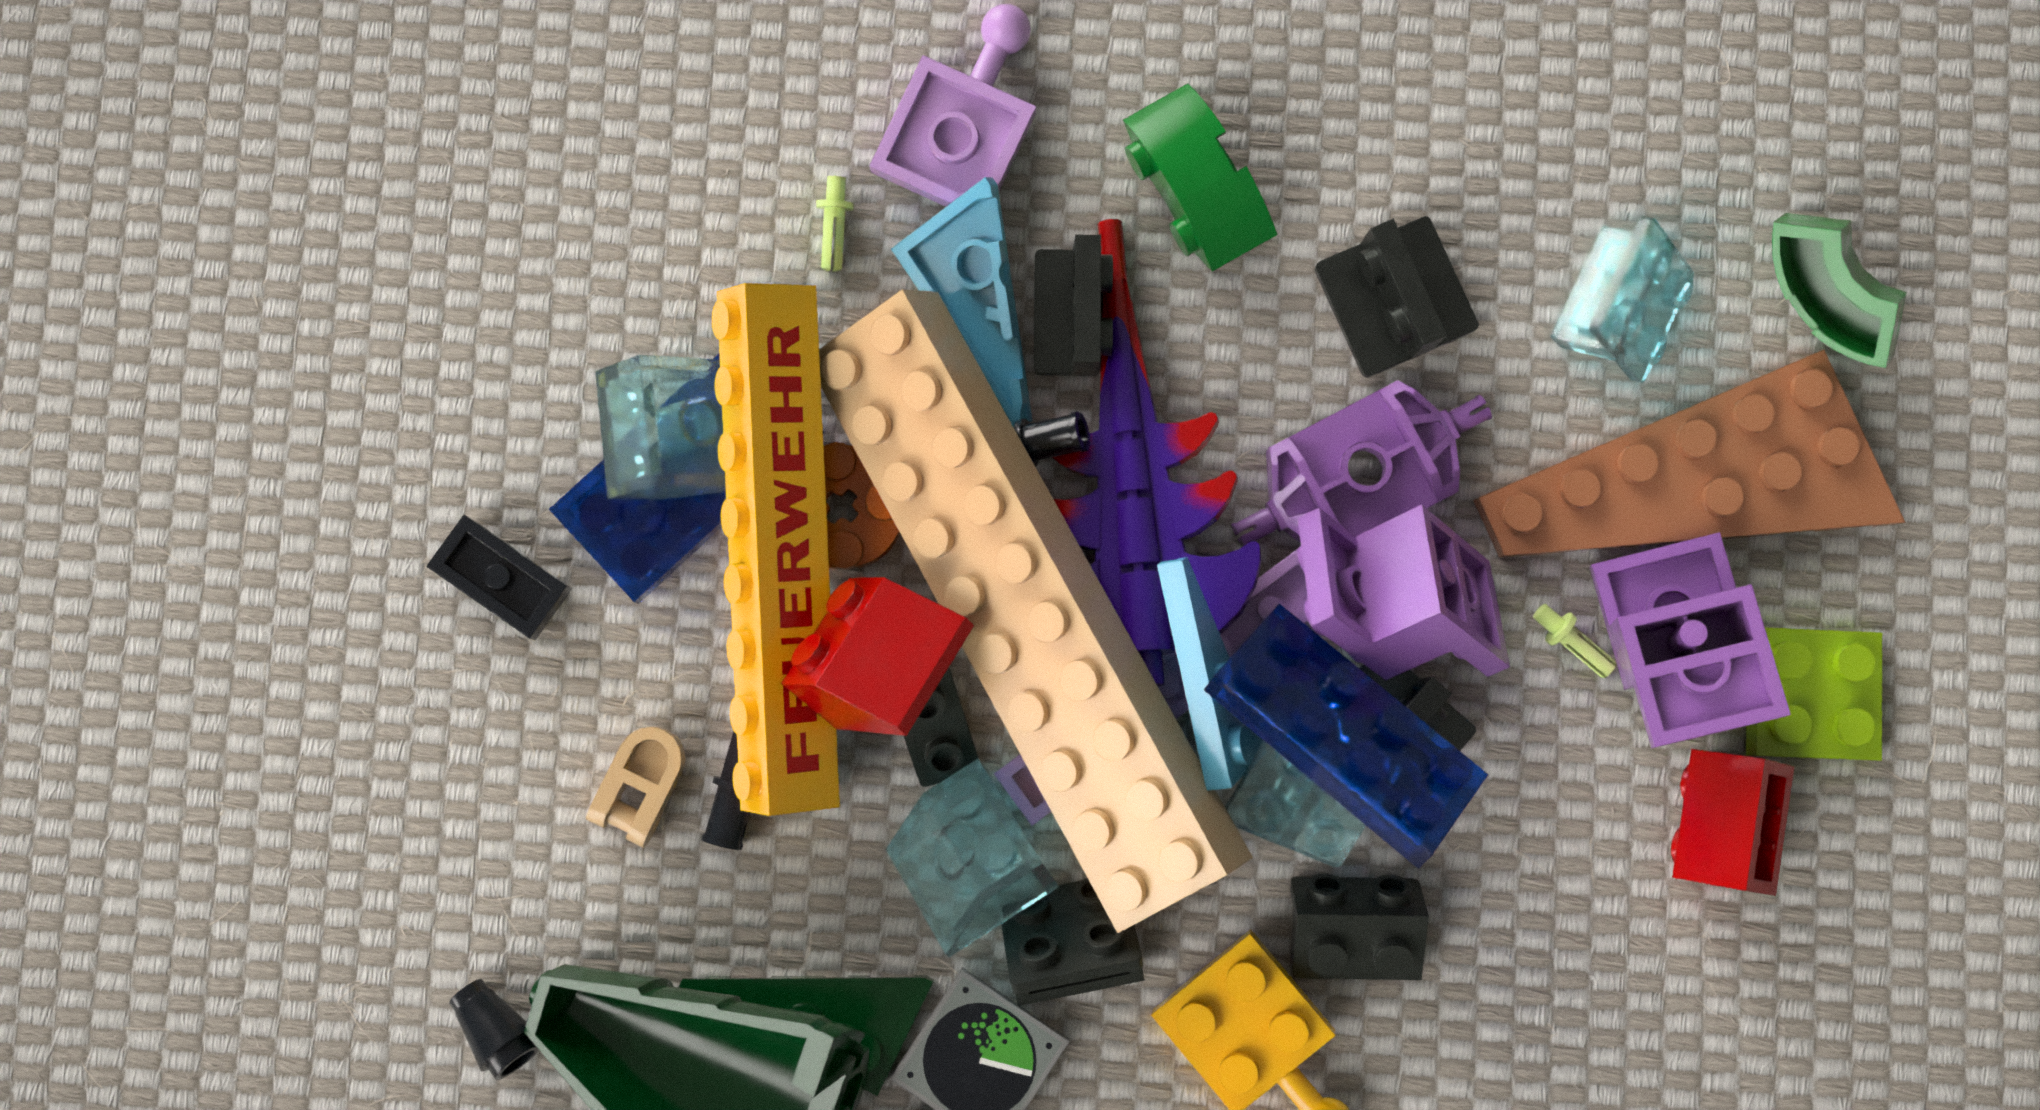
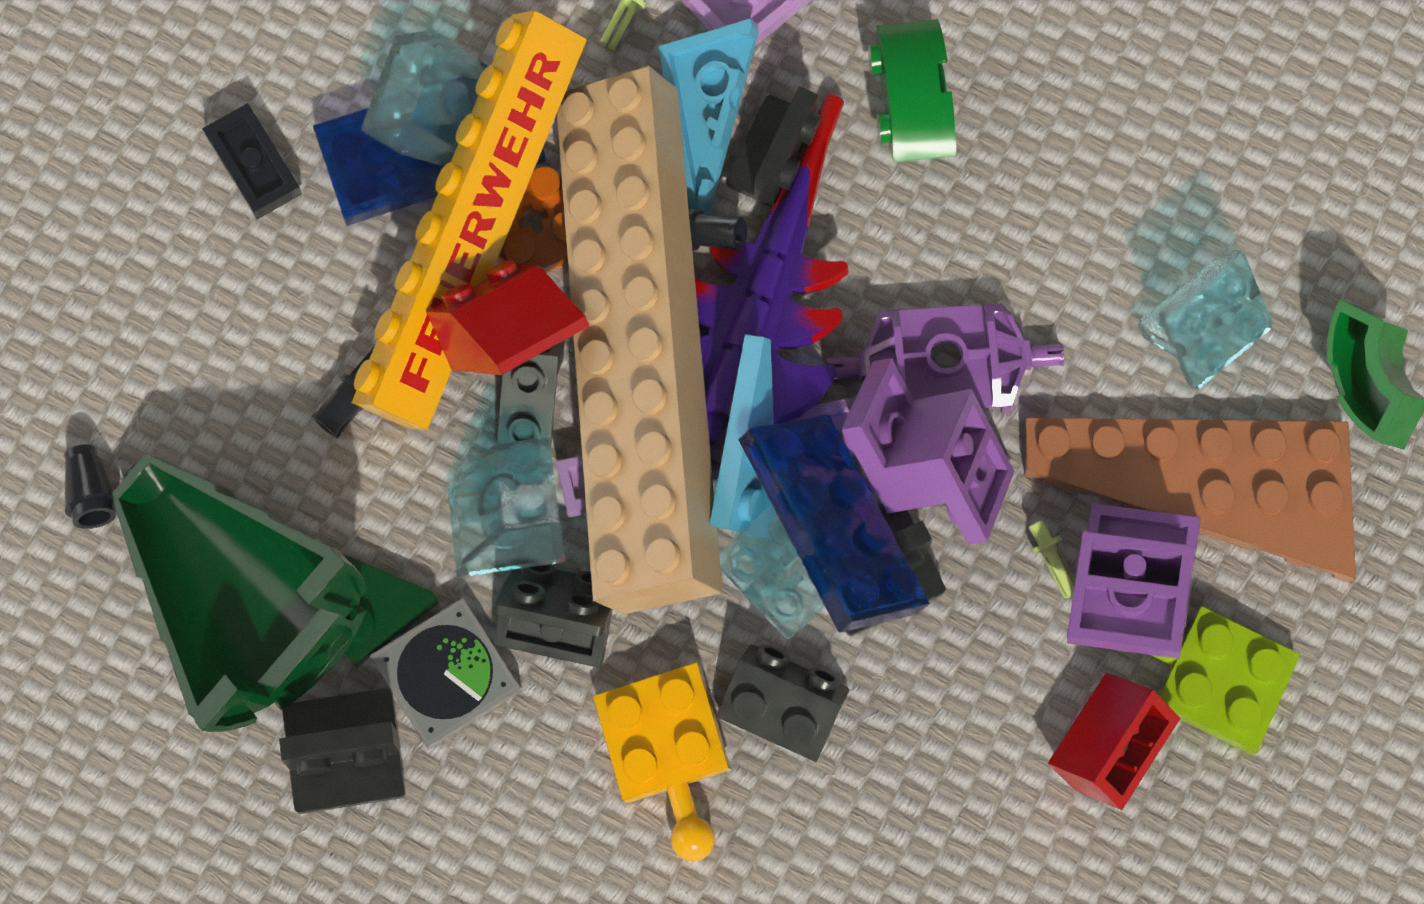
camera: 20 degrees right, 10 degrees down
(649, 762) = (298, 341): tan plate -> none
(1396, 295) = (1030, 241): pearl dark grey bracket -> none

